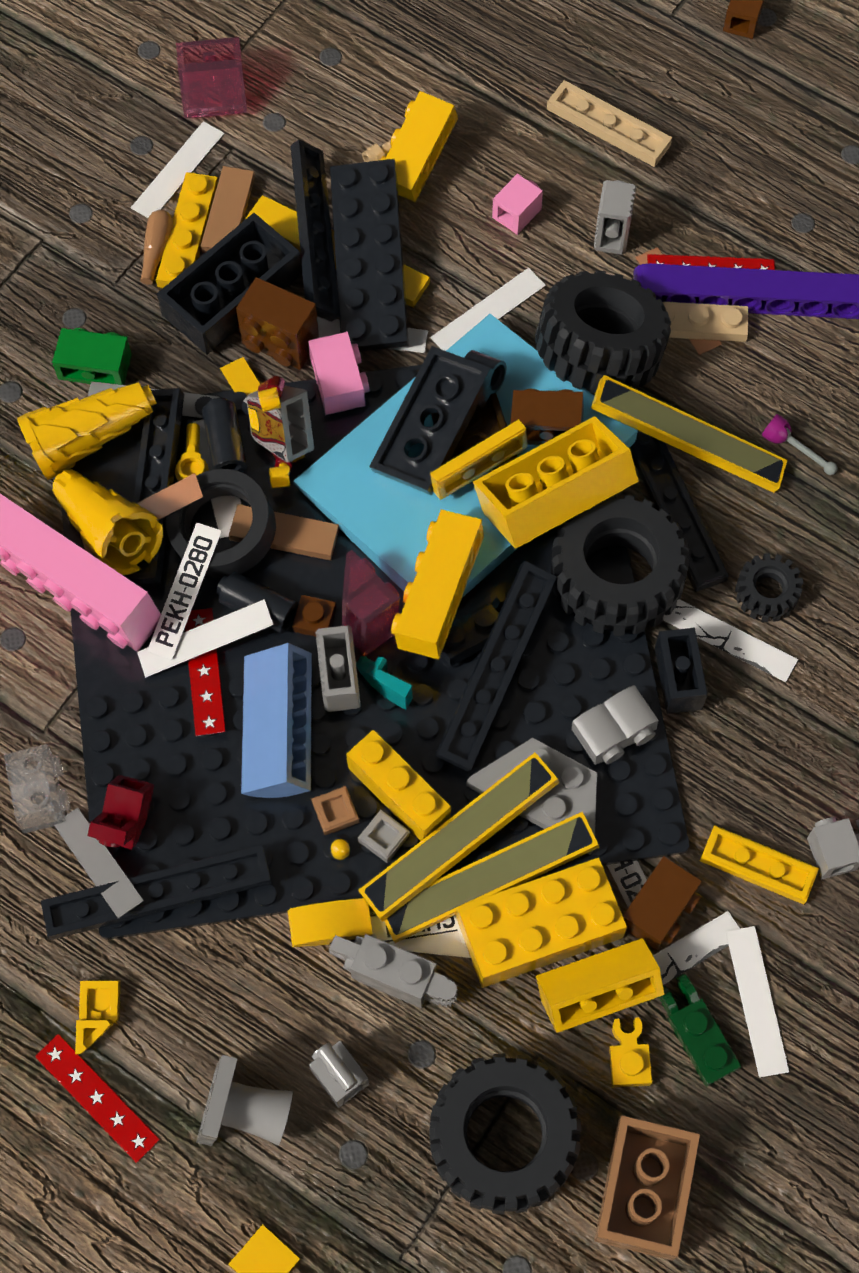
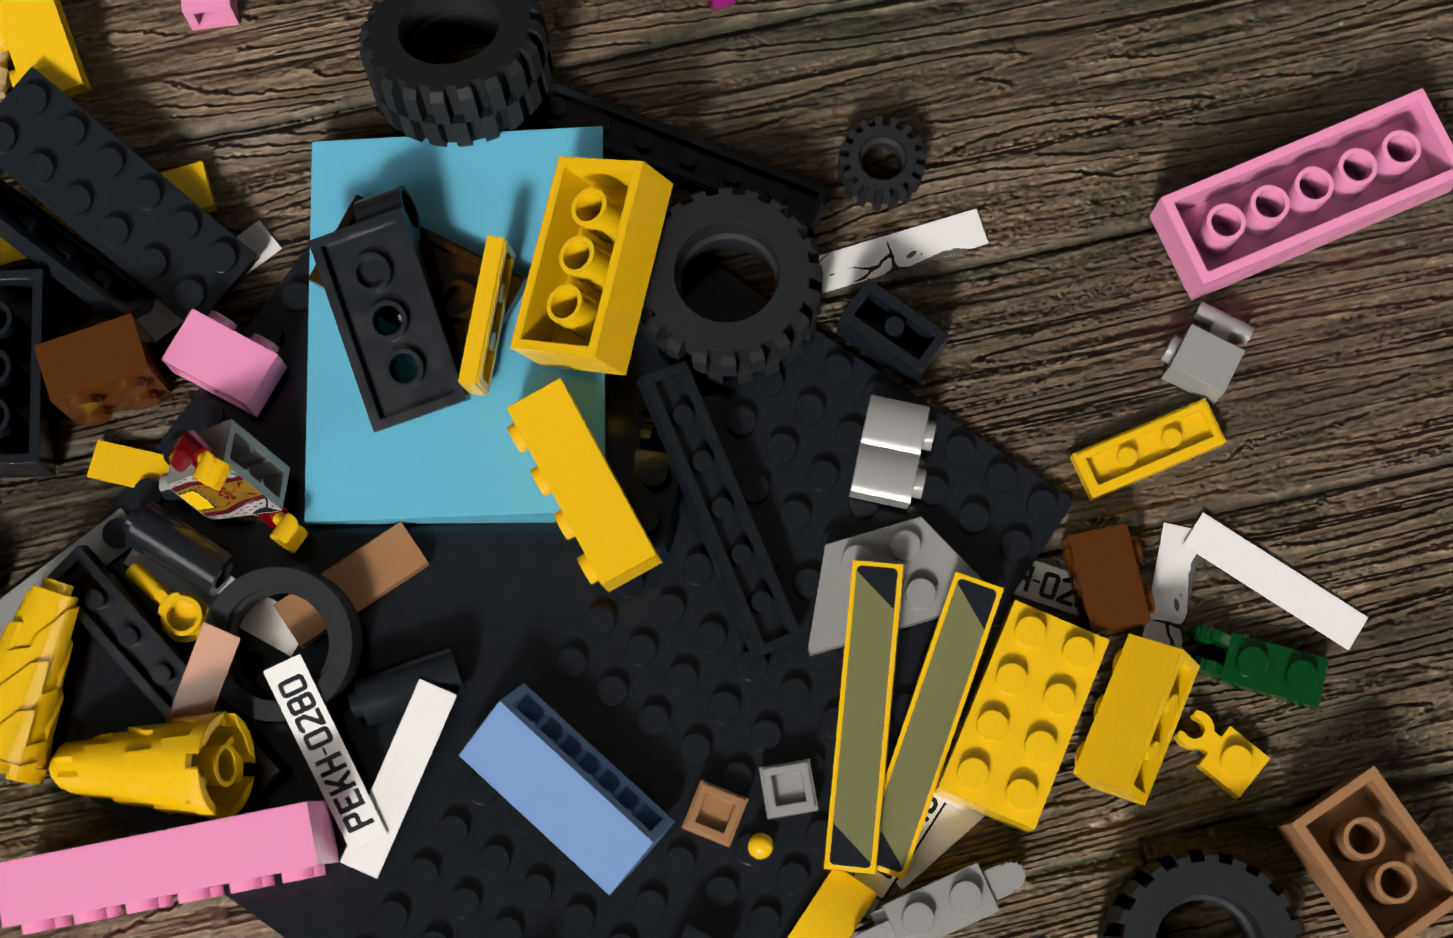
camera: 50 degrees left, 10 degrees up
(205, 682) = (444, 820): red sticker -> none
(313, 615) = (479, 640): reddish brown plate -> none
(338, 668) = (570, 671): light grey brick -> none
(367, 604) = (527, 579): clear pink slope -> none
(386, 684) = (603, 638): teal slope -> none
(398, 785) = (755, 727): yellow brick -> none
(497, 304) = (298, 130): white sticker -> none
(547, 412) = (501, 198): reddish brown brick -> none
(689, 434) = (649, 80): tile -> none

